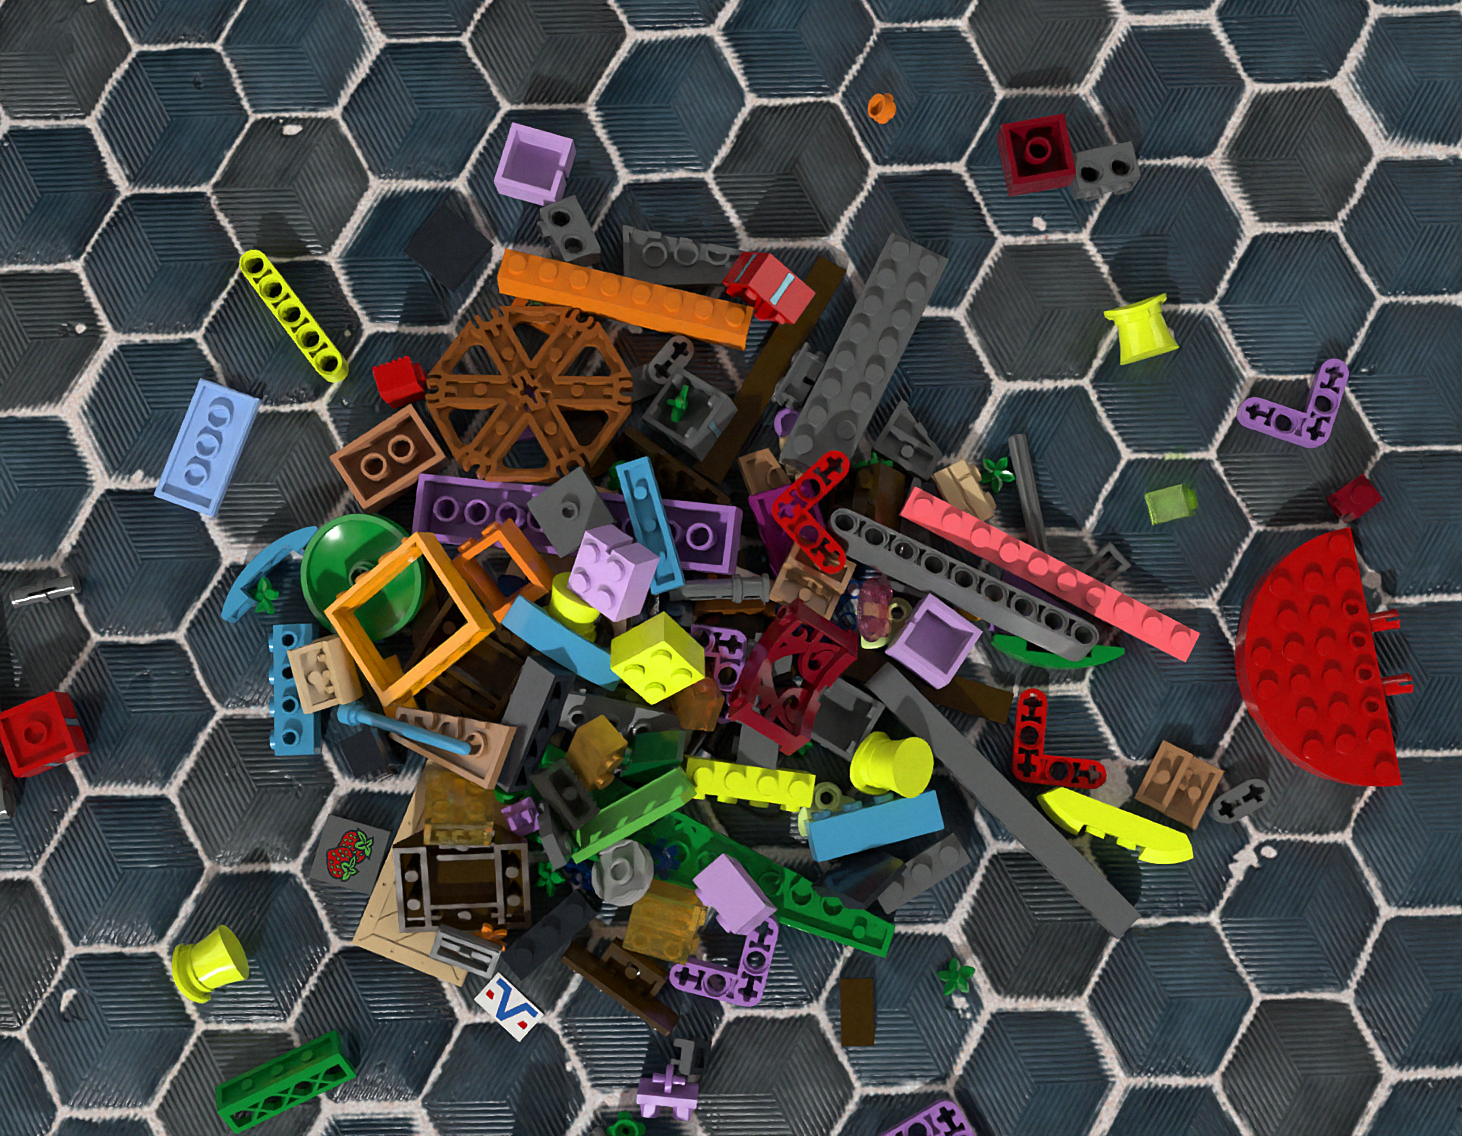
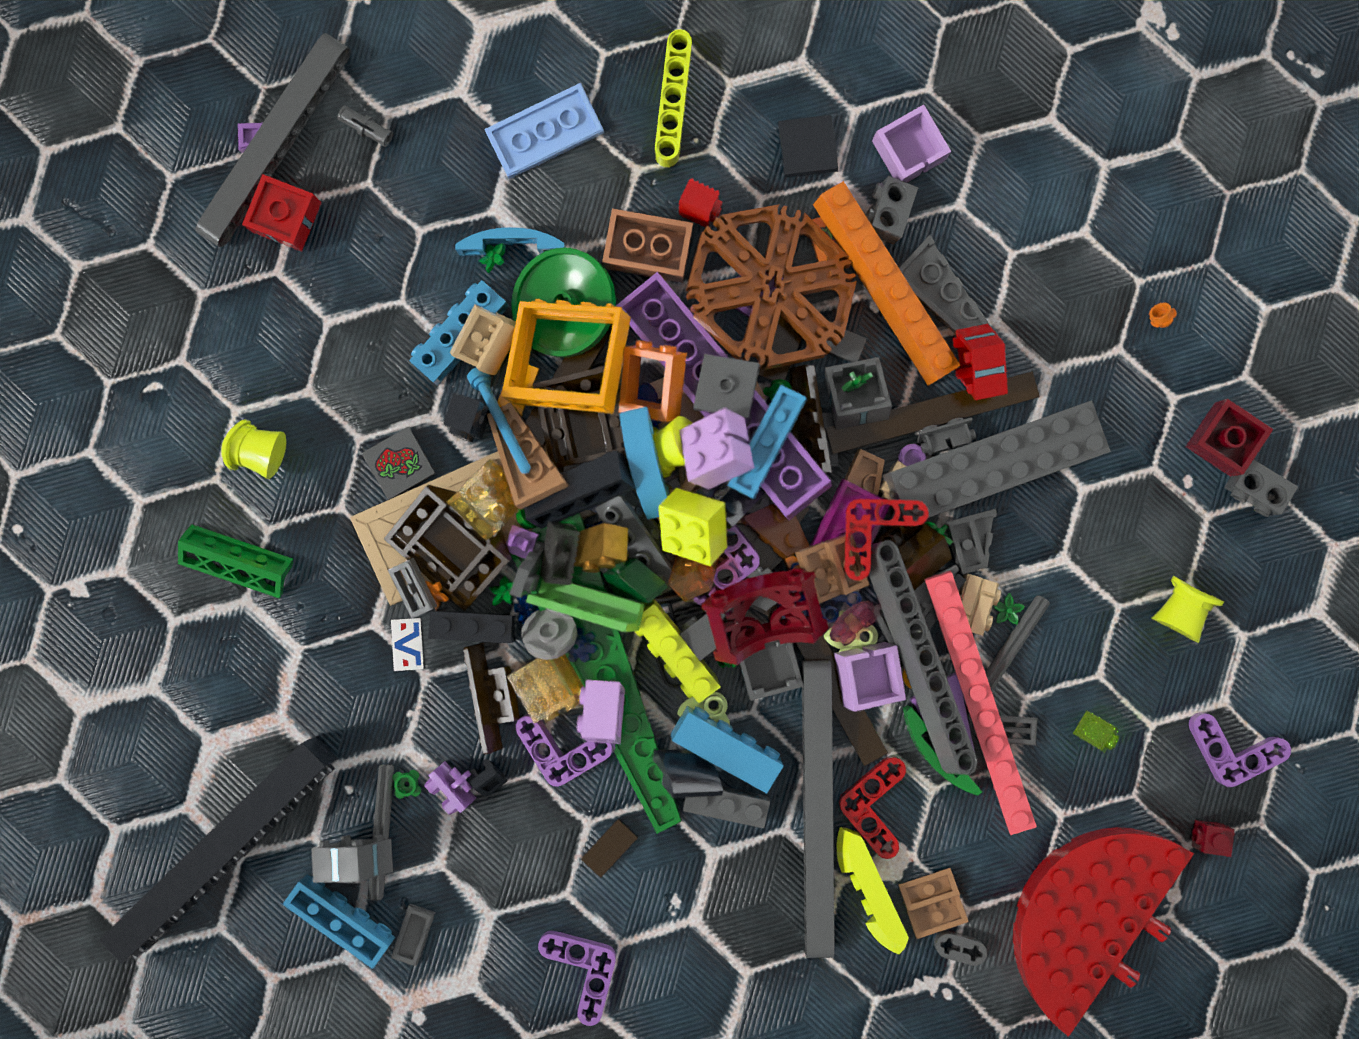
camera: 40 degrees right, 5 degrees up
(664, 358) = (874, 343): dark grey beam -> none
(734, 588) = (780, 528): dark grey pin -> none
(892, 765) = (772, 726): neon yellow hat -> none
(956, 977) = (688, 885): green plant -> none

